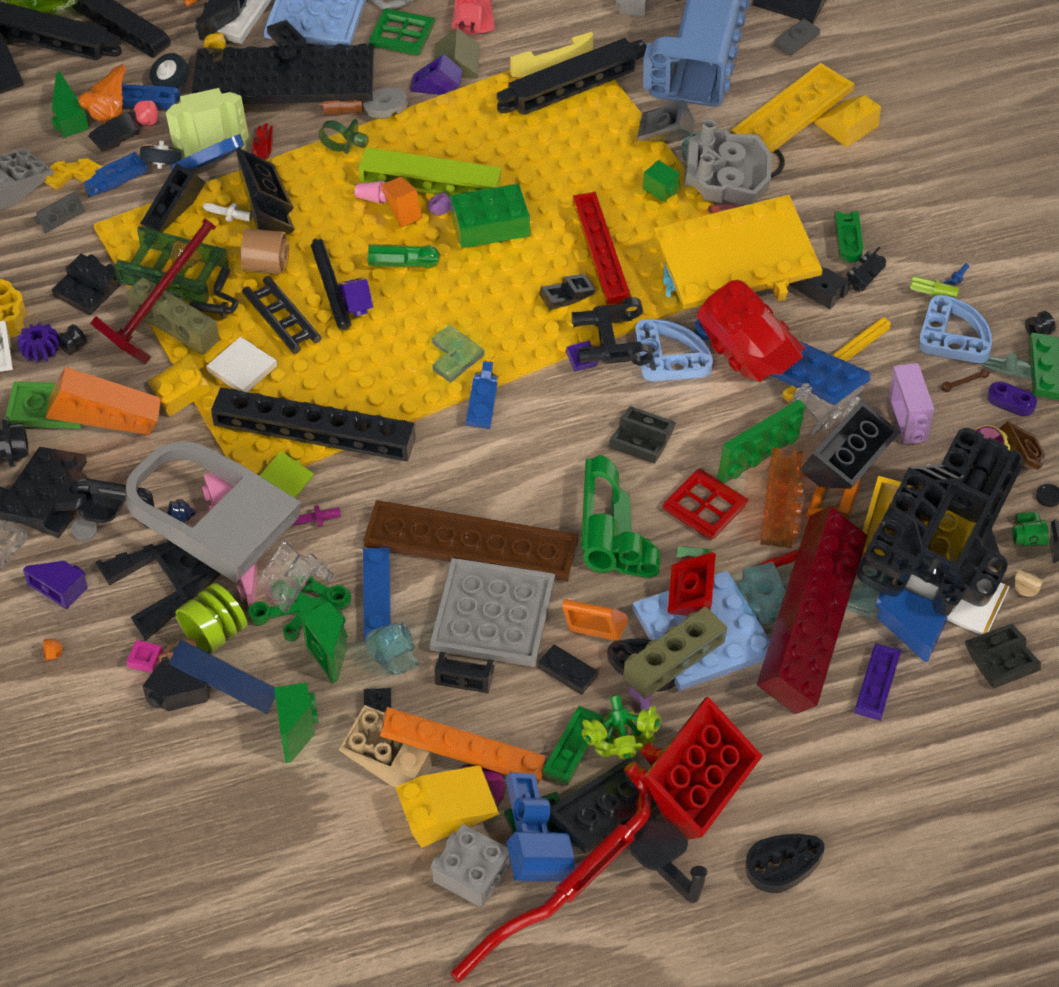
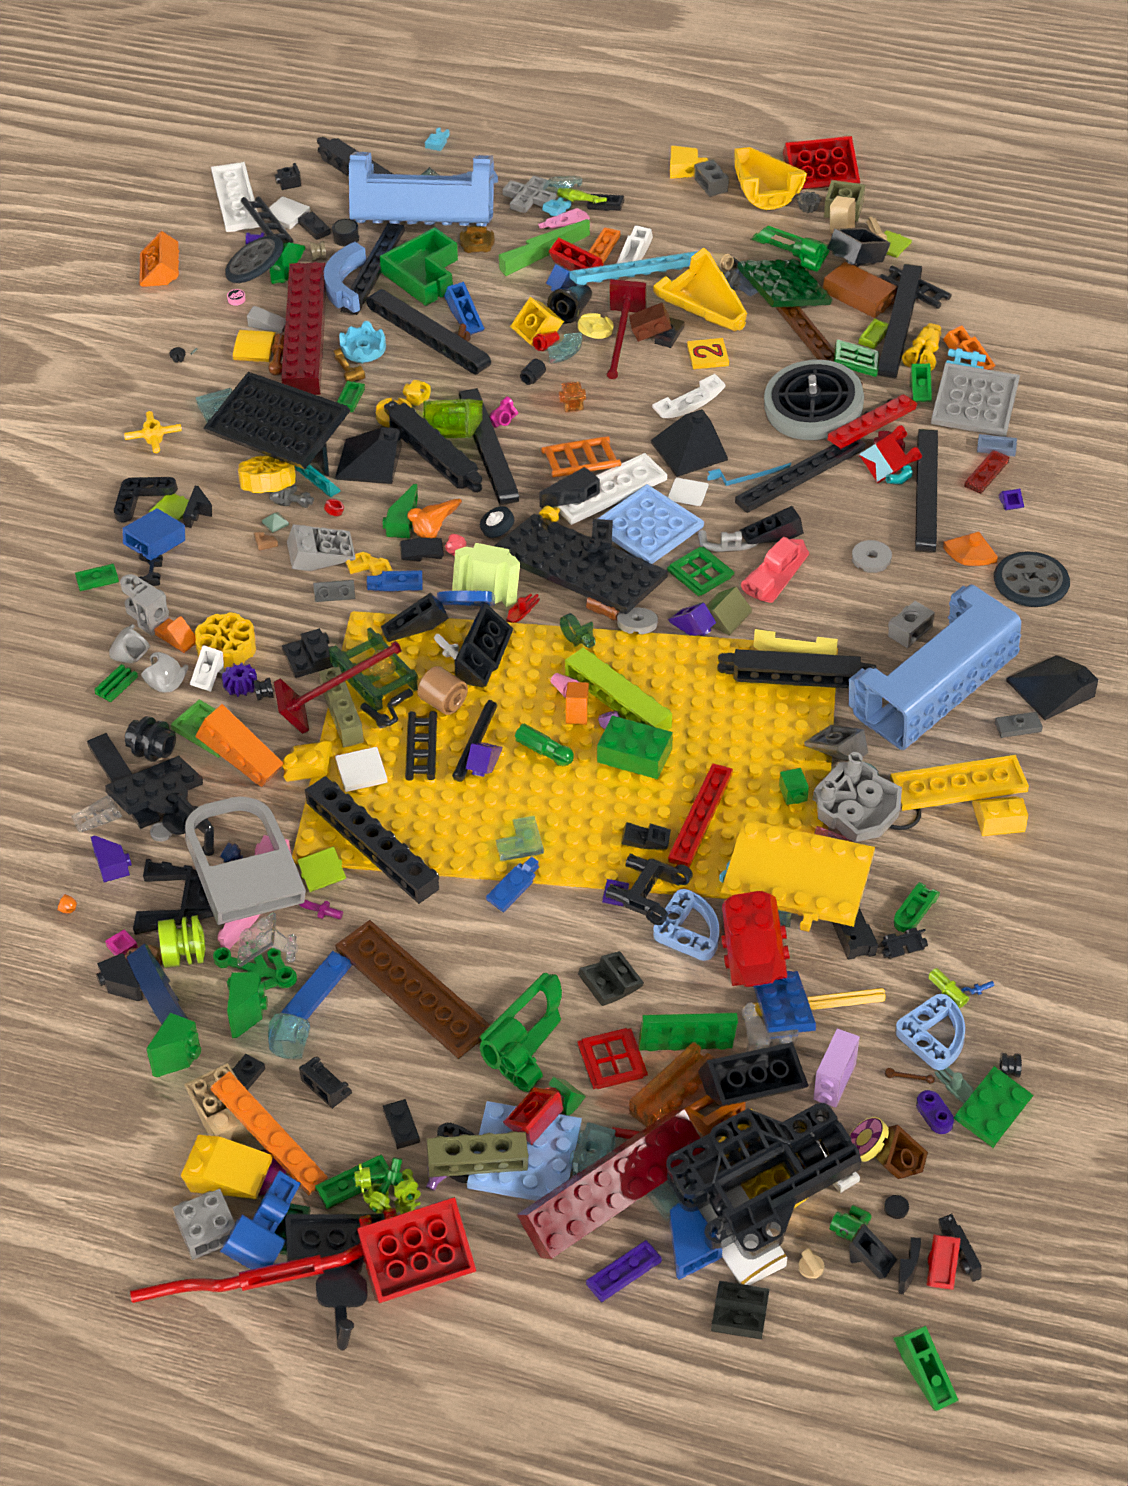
camera: 35 degrees right, 5 degrees down
(160, 154) = (436, 580): black wheel -> none
(162, 96) = (468, 531): blue plate -> none
(493, 612) = (383, 1050): light grey plate -> none
(594, 620) = (446, 1096): orange tile -> none
(787, 875) = (431, 1347): black piece -> none

